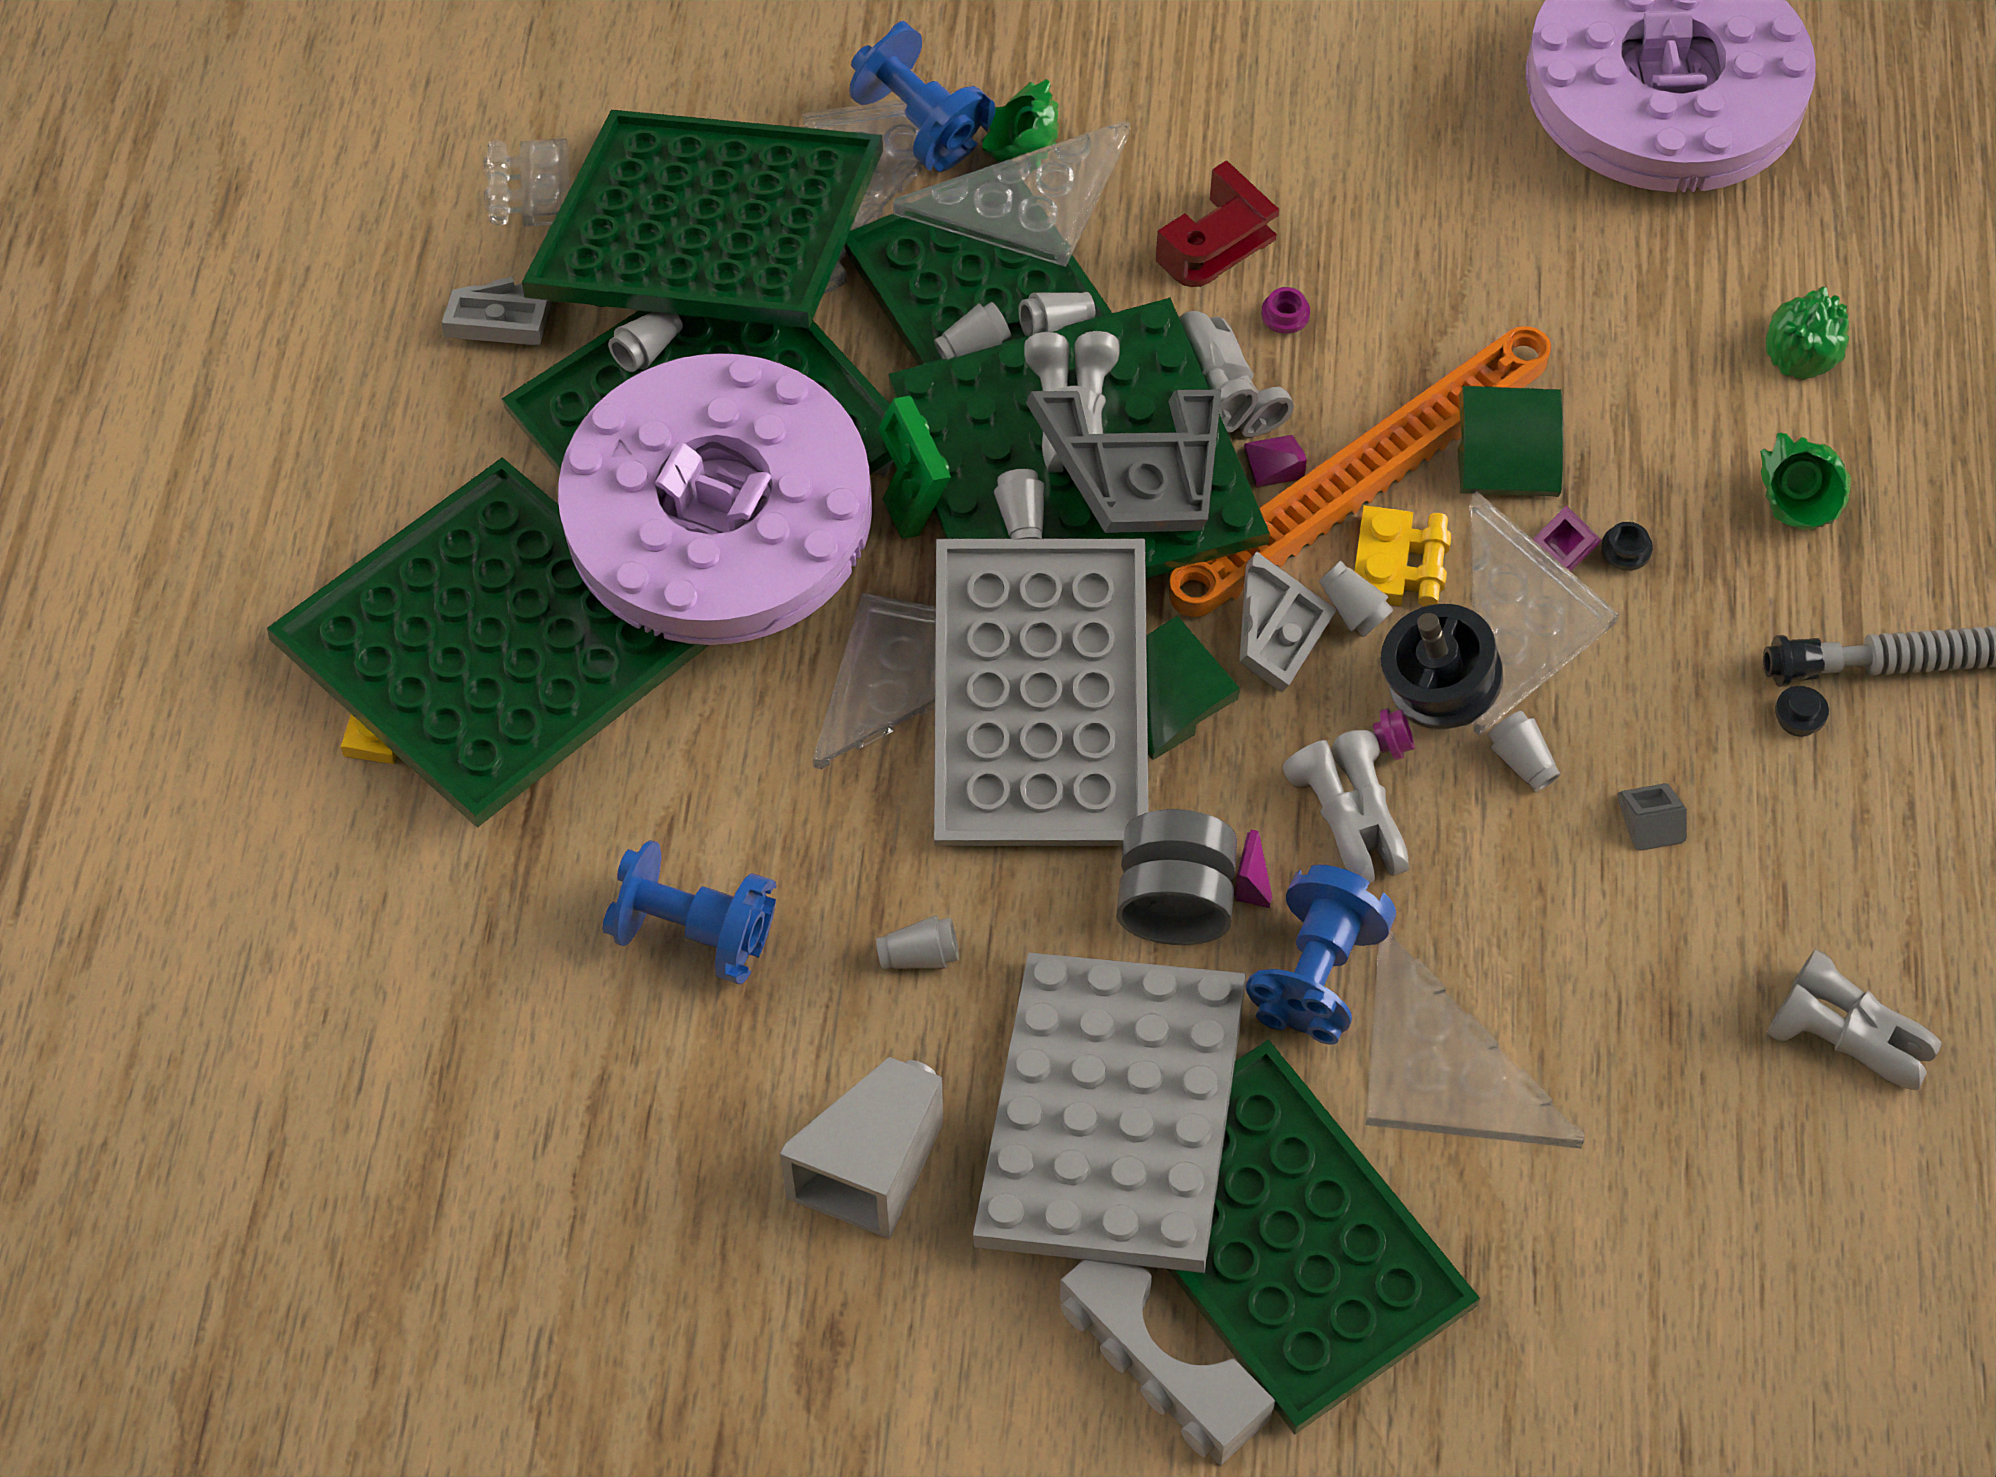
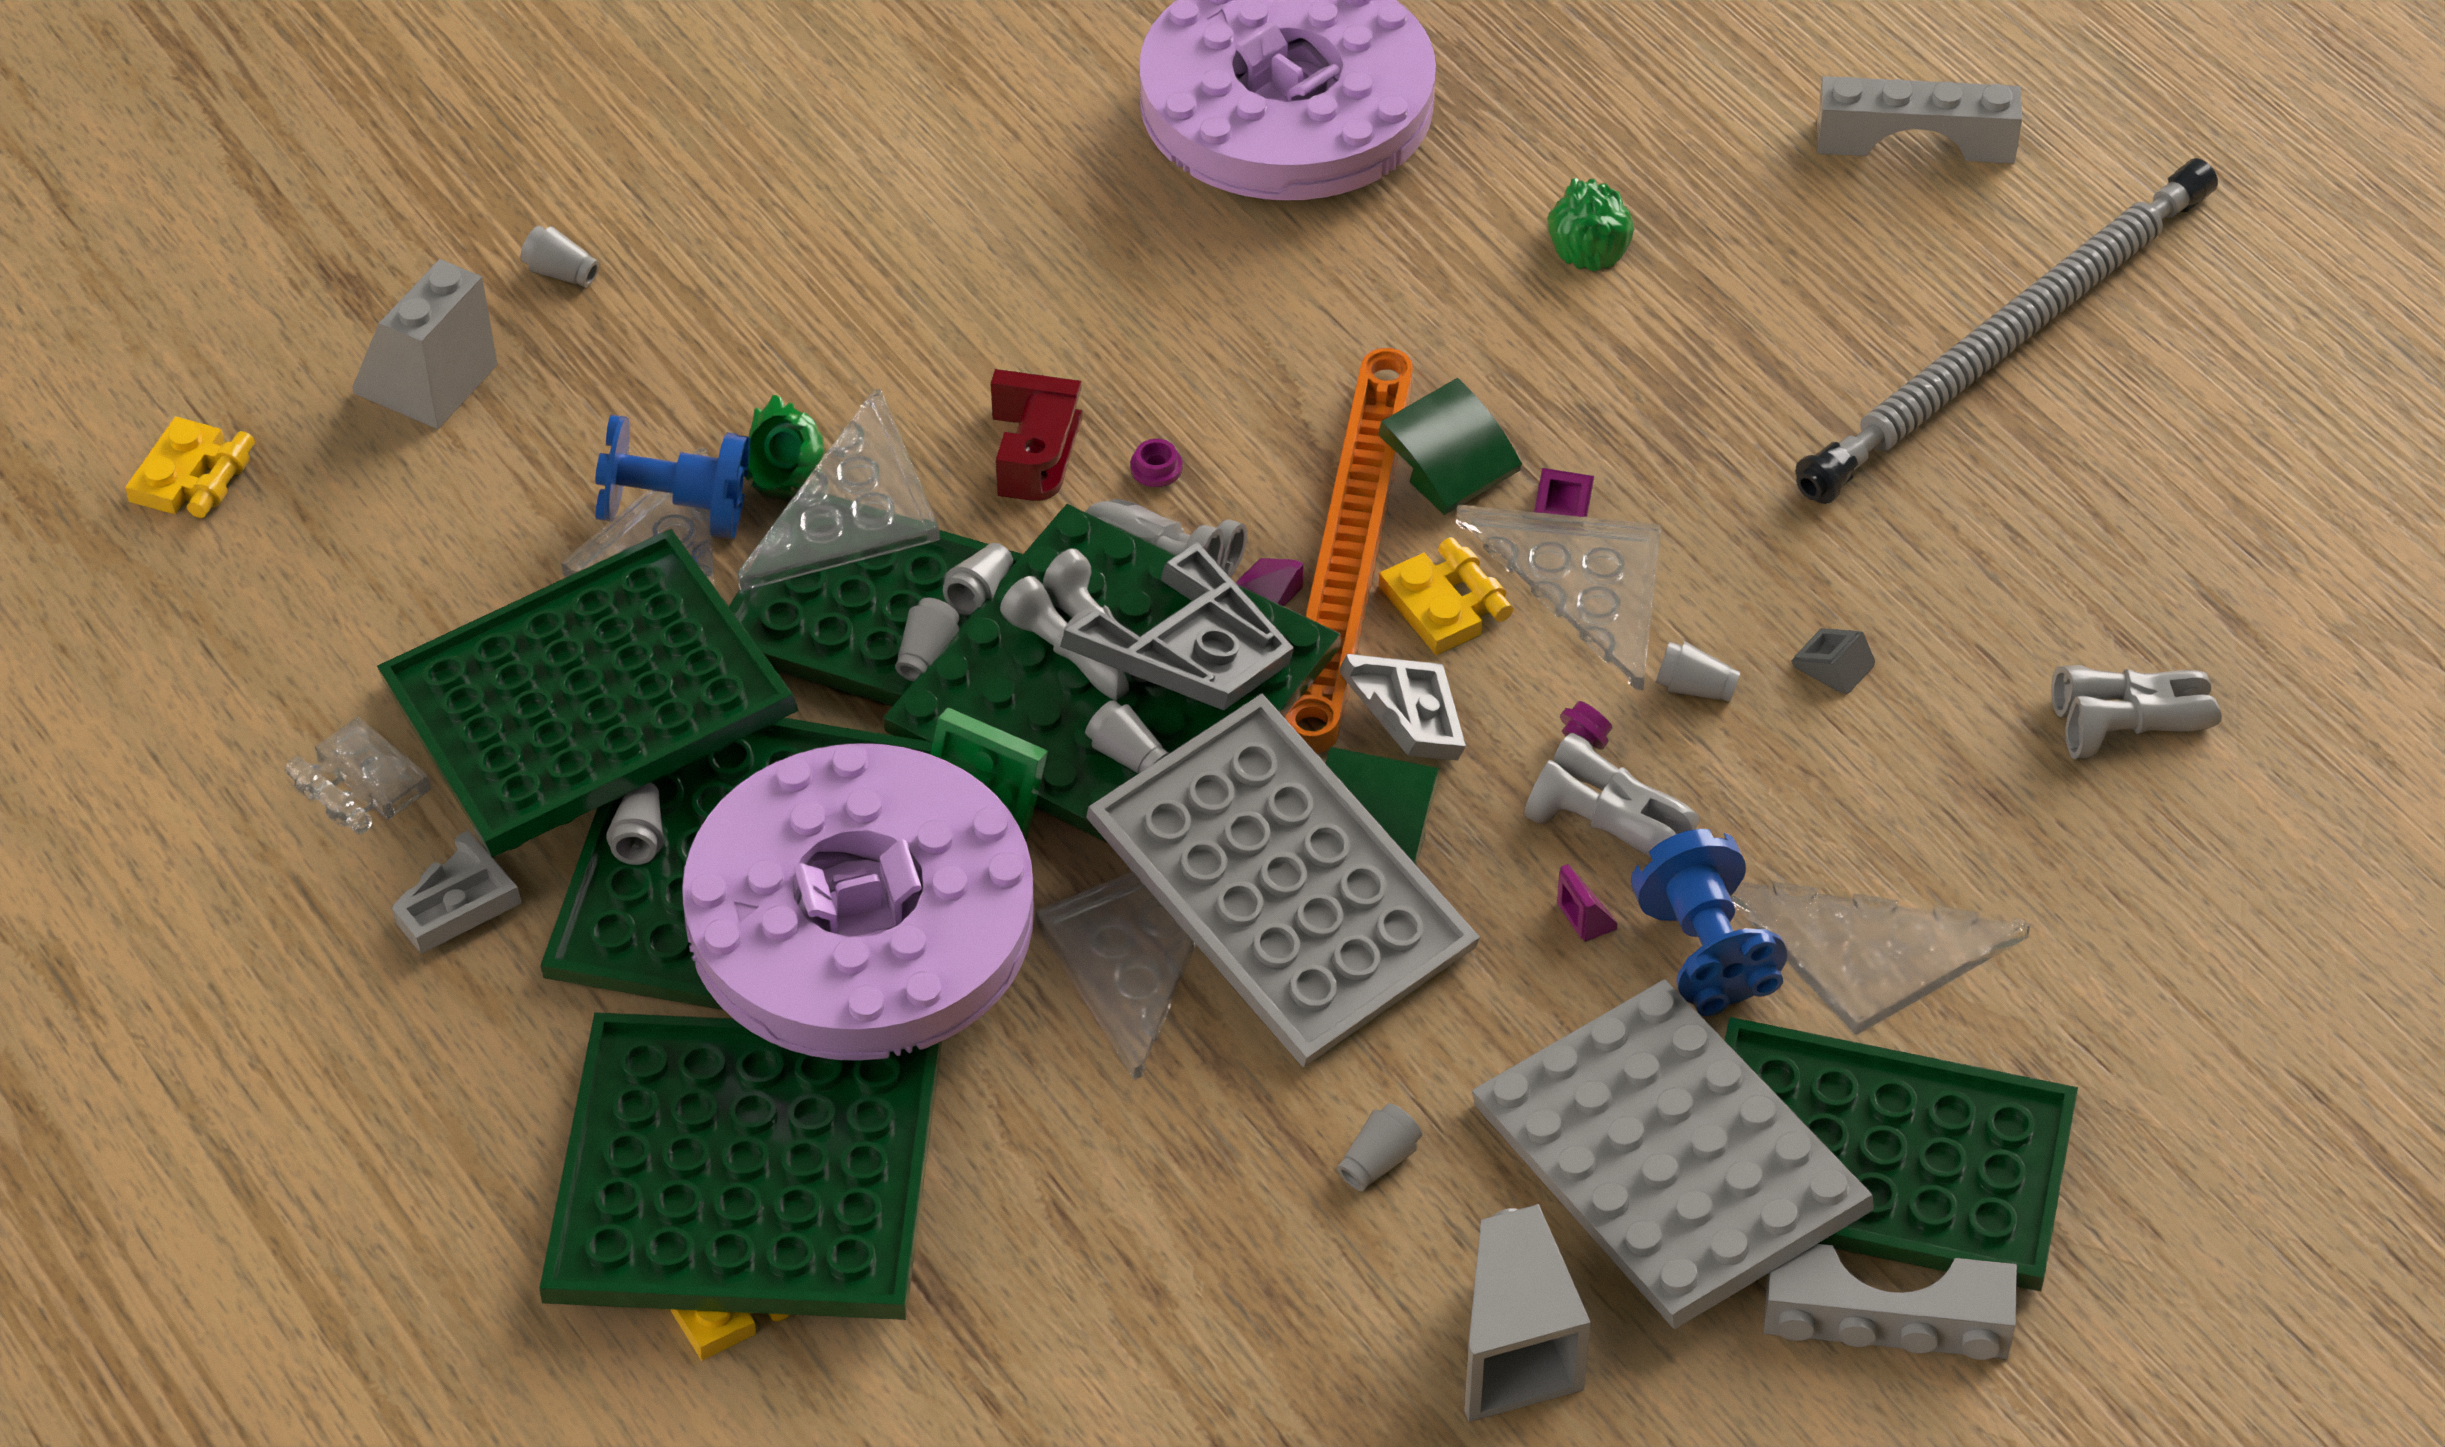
camera: 40 degrees left, 10 degrees down
(727, 922) = (1195, 1239): blue piece -> none
(1177, 877) = (1542, 941): dark grey wheel -> none
(1355, 599) = (1455, 645): light grey cone -> none
(1442, 666) = (1578, 645): black wheel -> none
(1627, 546) = (1614, 471): black plate -> none
(1801, 710) = (1866, 509): black plate -> none
(1804, 482) = (1707, 334): green hair -> none

